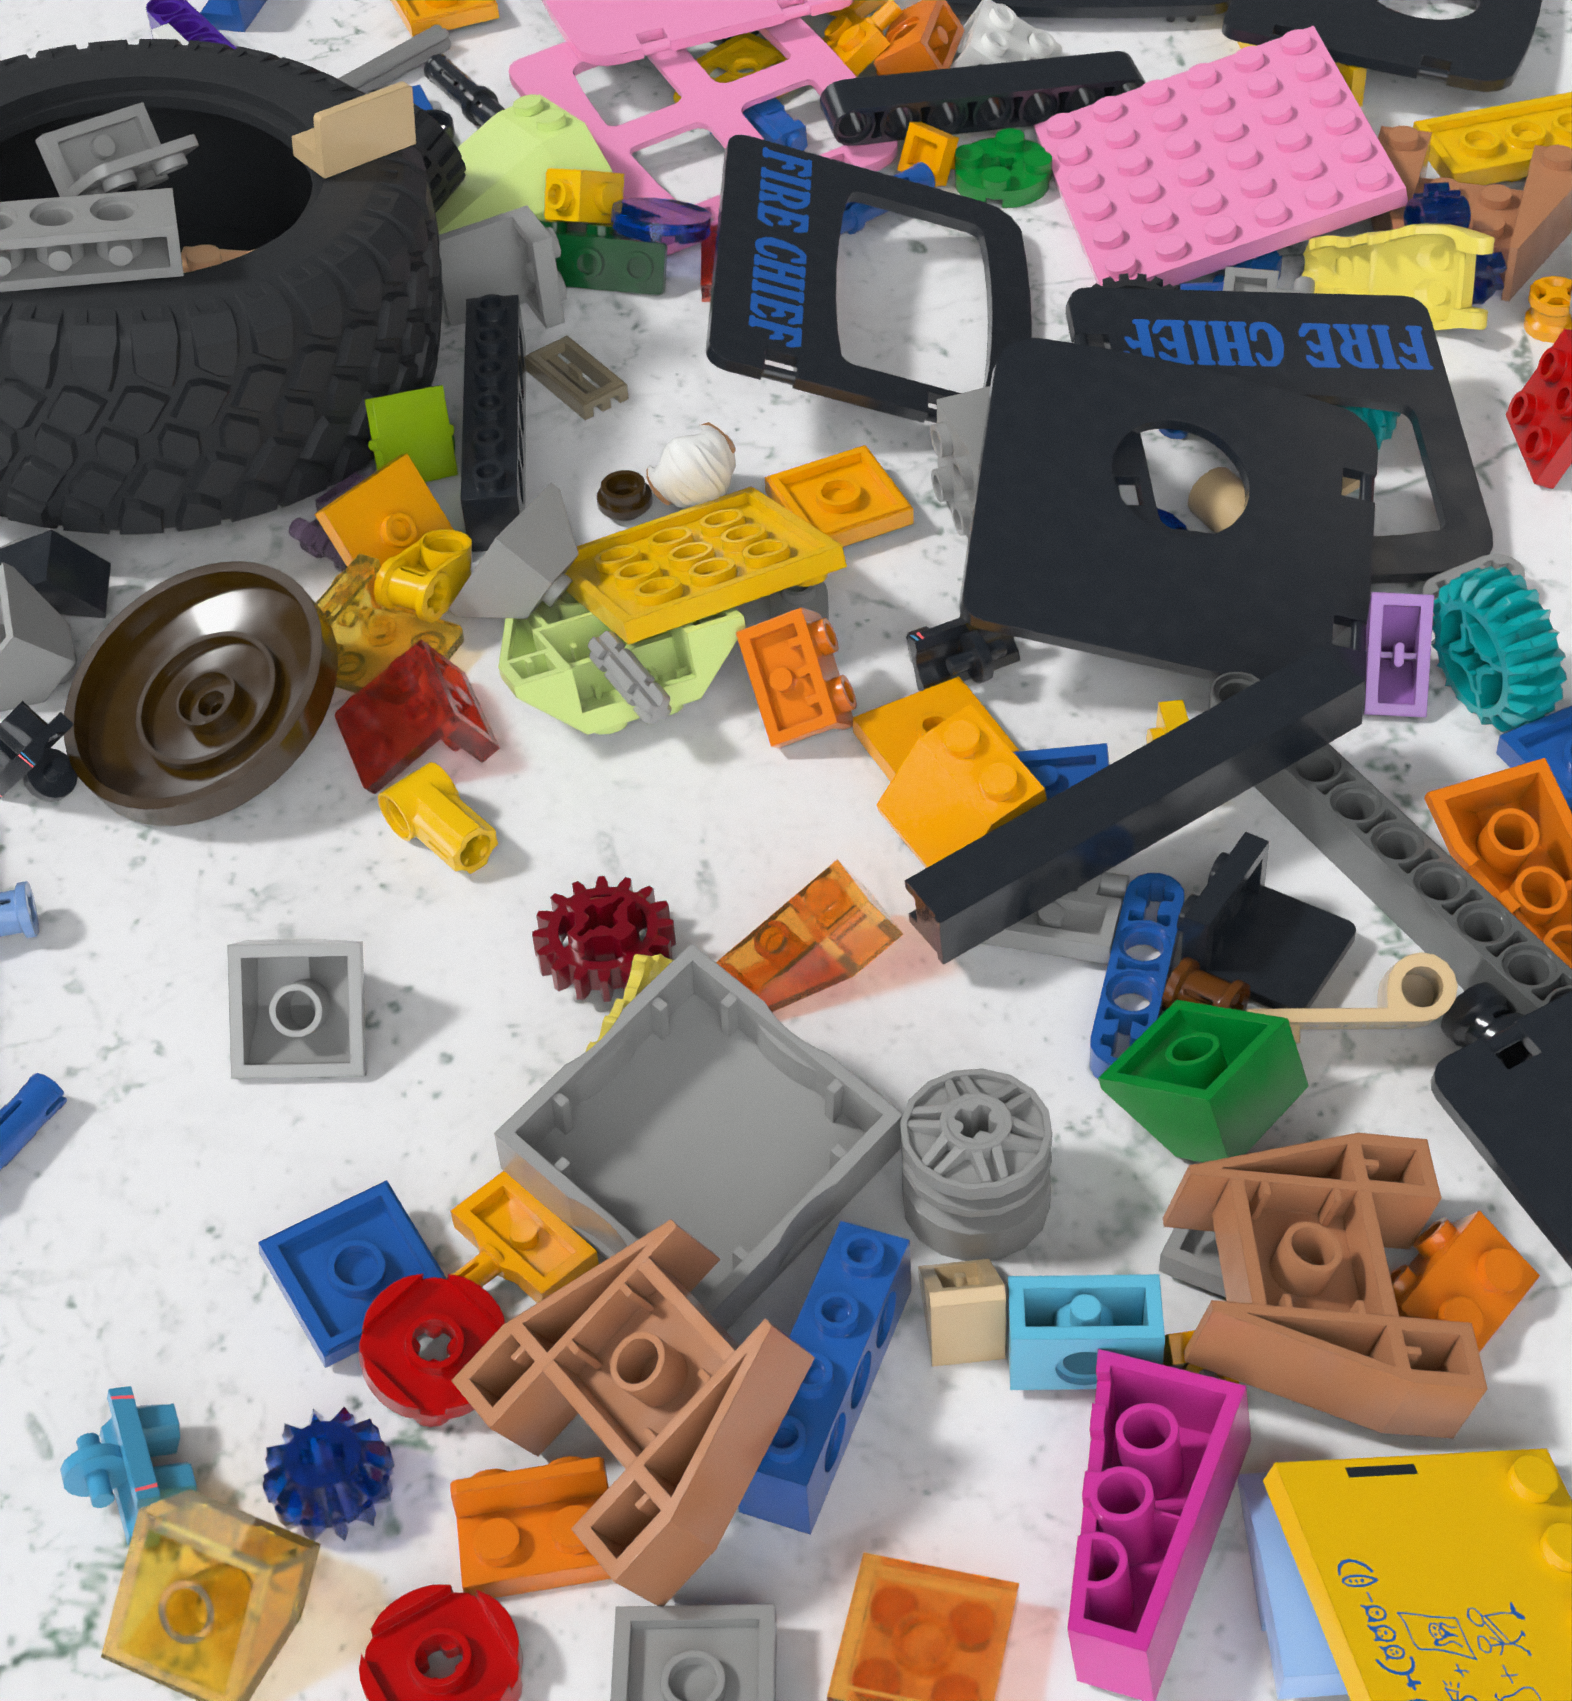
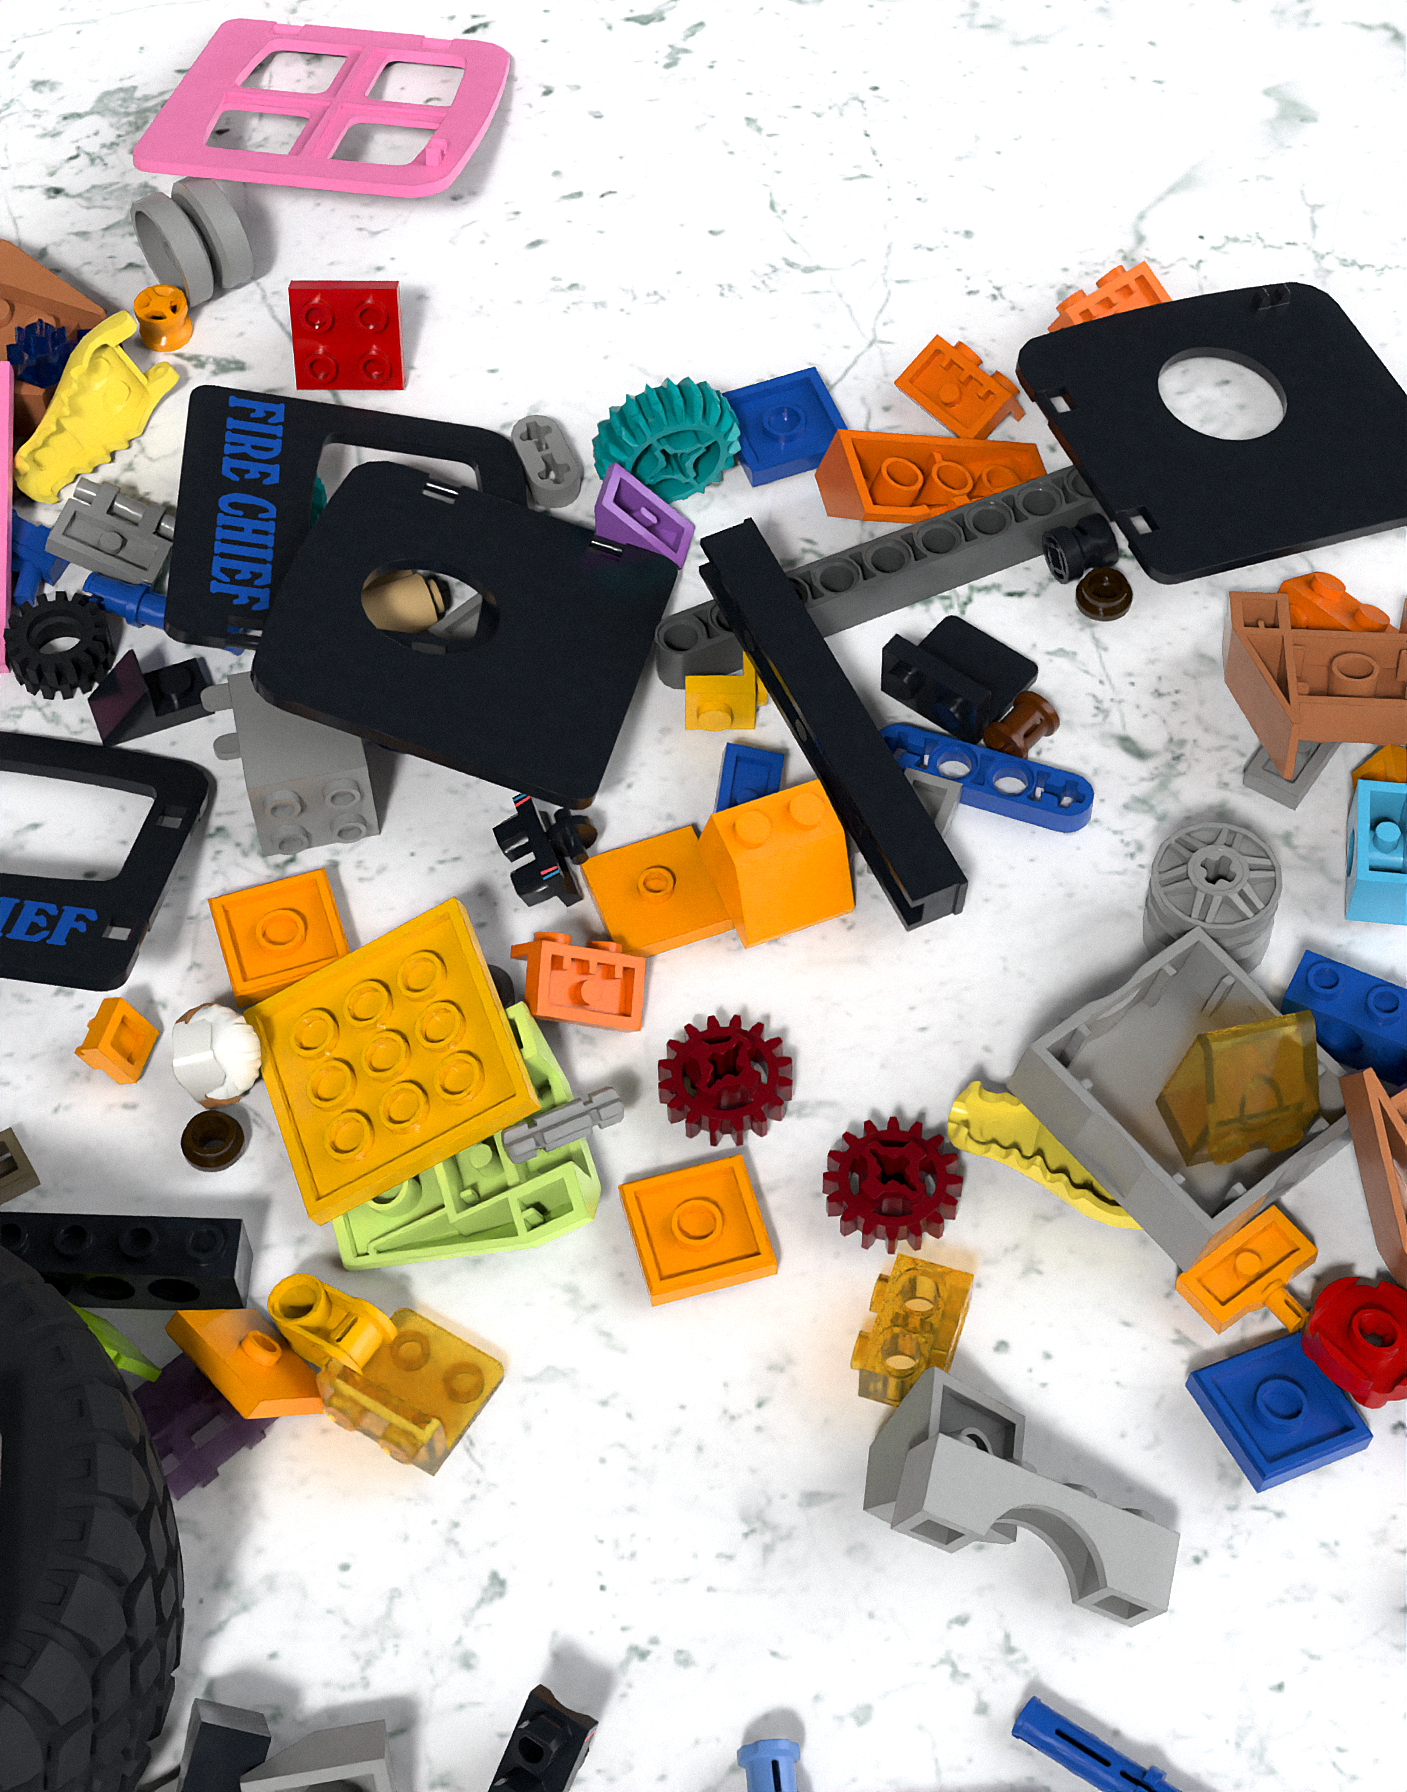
camera: 85 degrees left, 10 degrees up
(186, 1125) = (1111, 1555): none -> light grey arch
(201, 693) = (493, 1556): dark brown container -> none
(410, 710) = (544, 1364): clear red bracket -> none
(431, 810) = (682, 1344): yellow piece -> none
(437, 970) = (923, 1336): none -> clear yellow brick
(522, 563) = (341, 1222): light grey slope -> none
(552, 808) = (697, 1230): none -> light orange plate
(694, 1166) = (1243, 1090): none -> clear yellow slope
(713, 804) = (726, 1084): none -> dark red gear
(716, 408) = (118, 1041): none -> light orange tile
(813, 940) = (927, 1021): clear orange slope -> none
(964, 1311) = (1342, 929): tan slope -> none
(1208, 1079) = (1123, 735): green slope -> none
(1407, 998) = (1057, 594): tan door -> none
(1420, 1058) = (1103, 595): none -> dark brown plate

